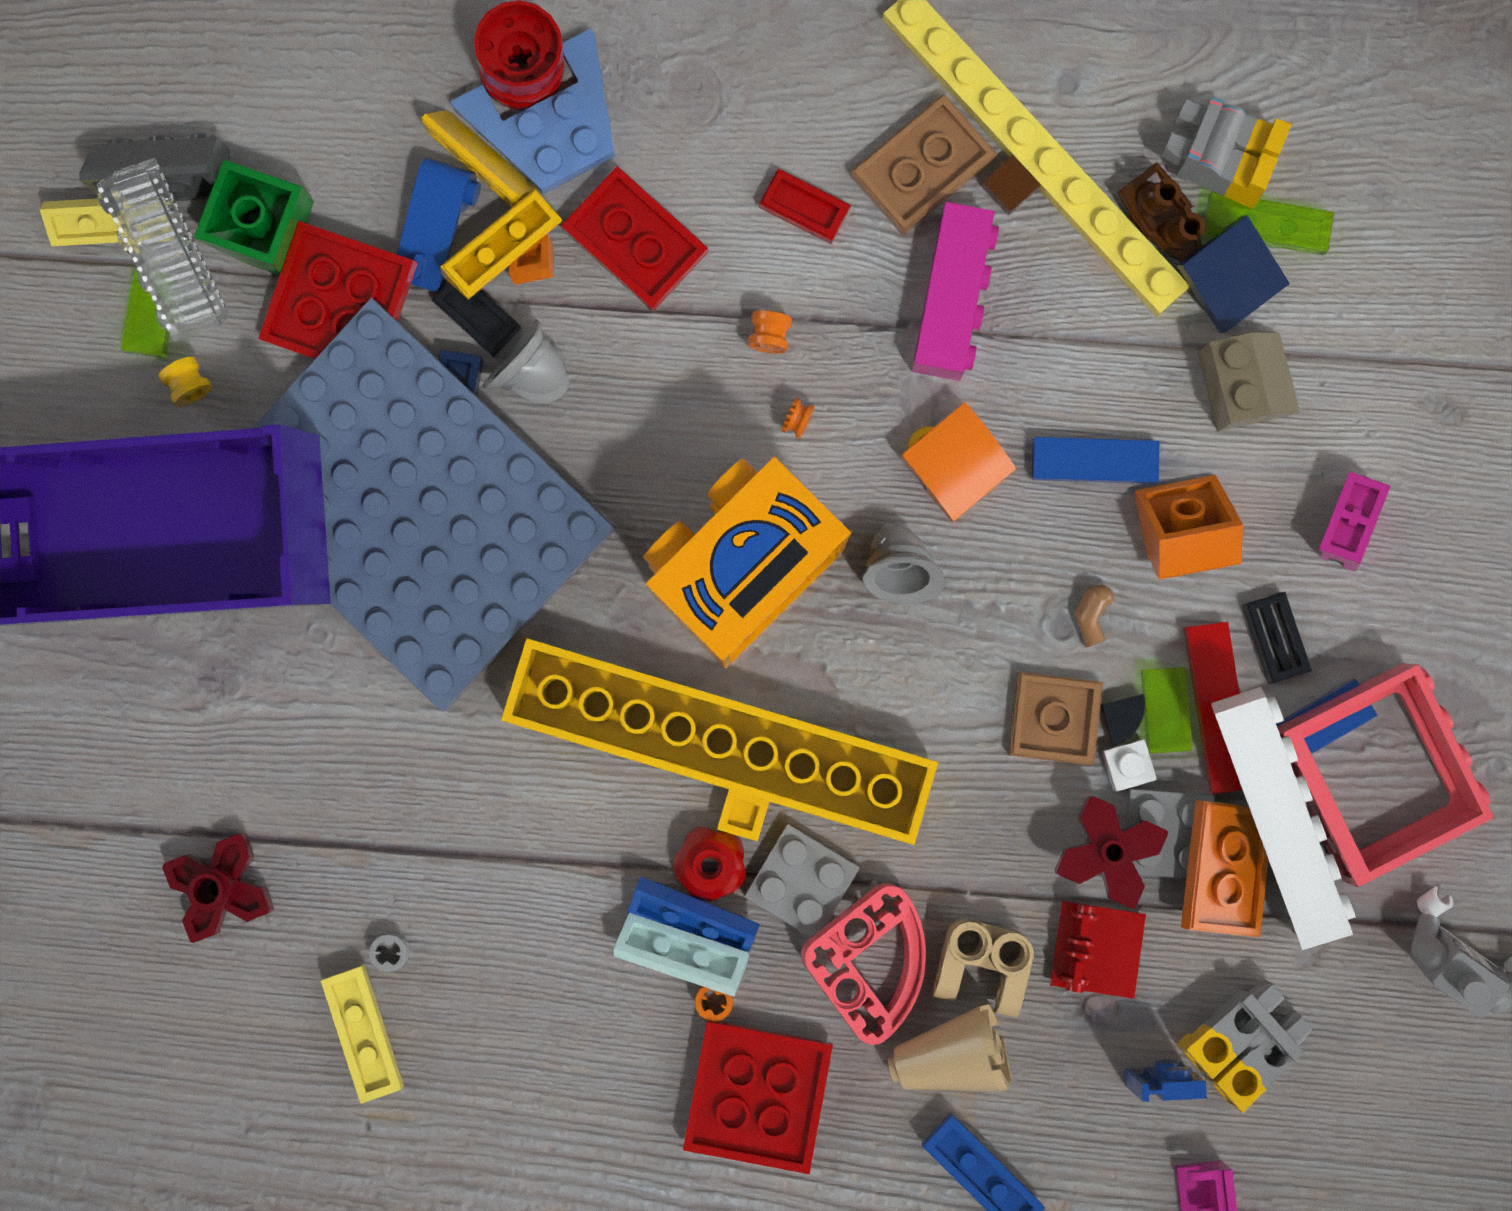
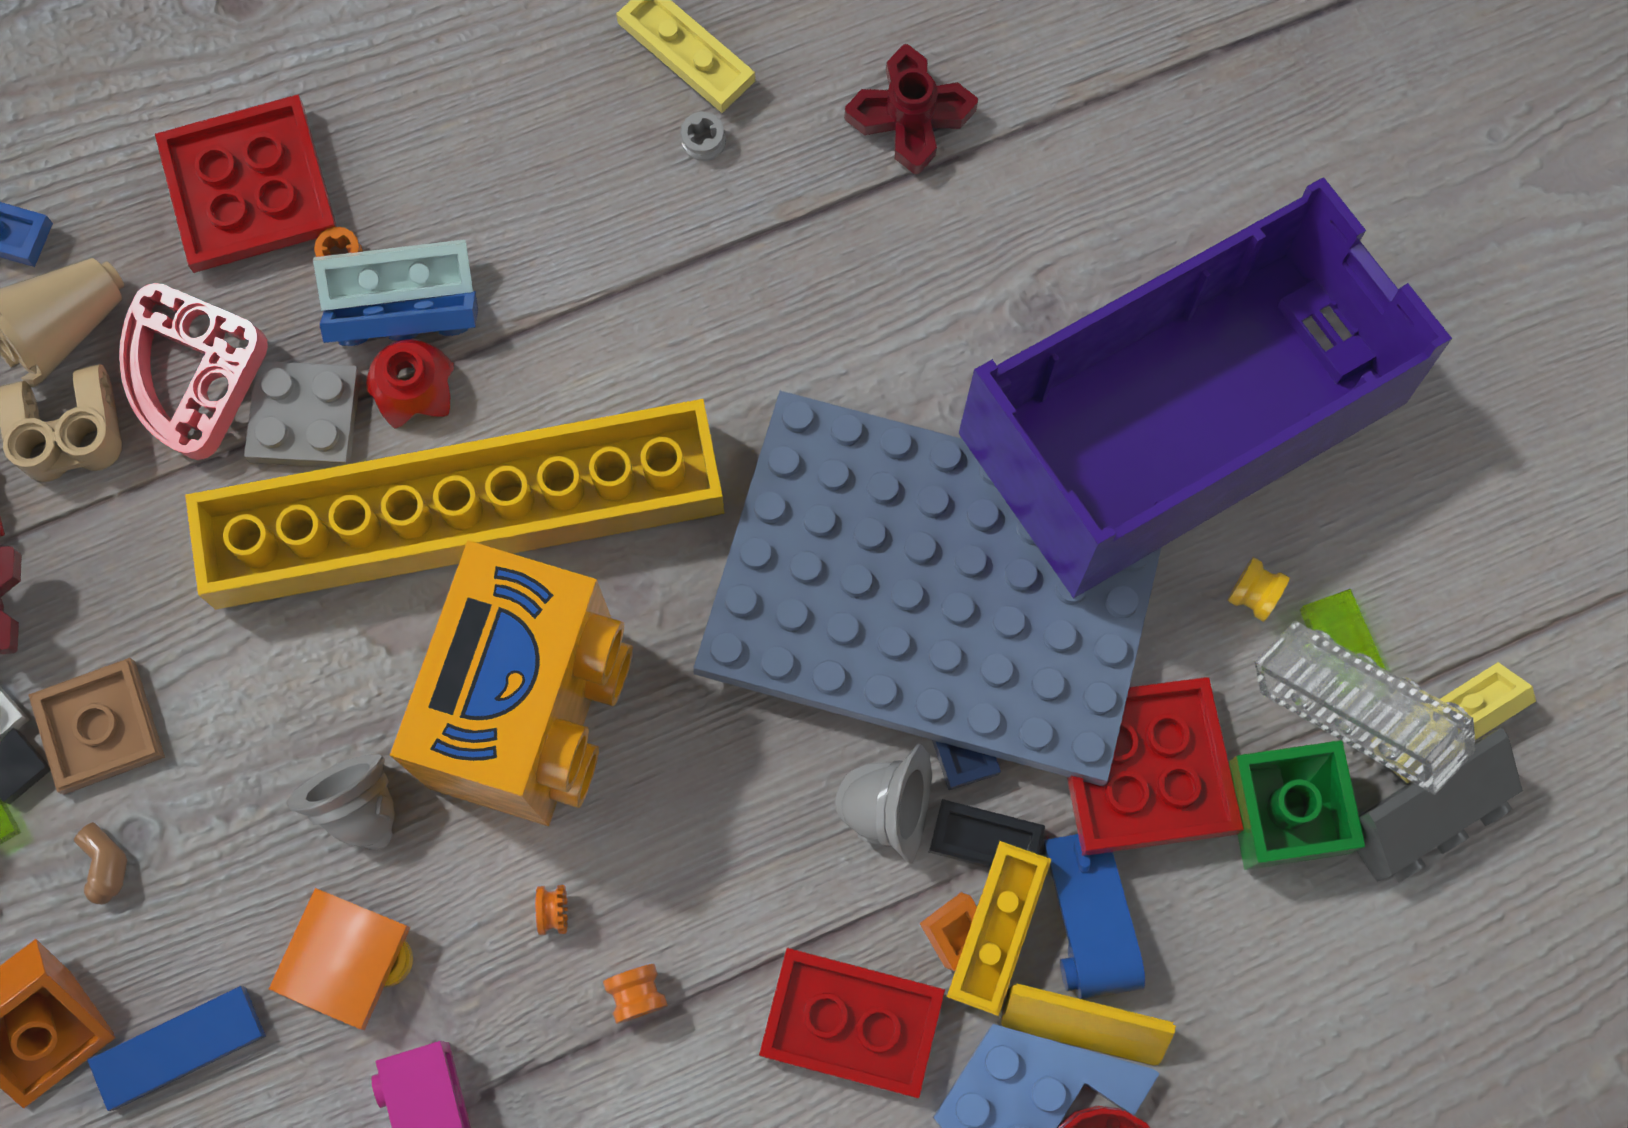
camera: 150 degrees right, 10 degrees down
(743, 815) = (397, 437): yellow plate -> none

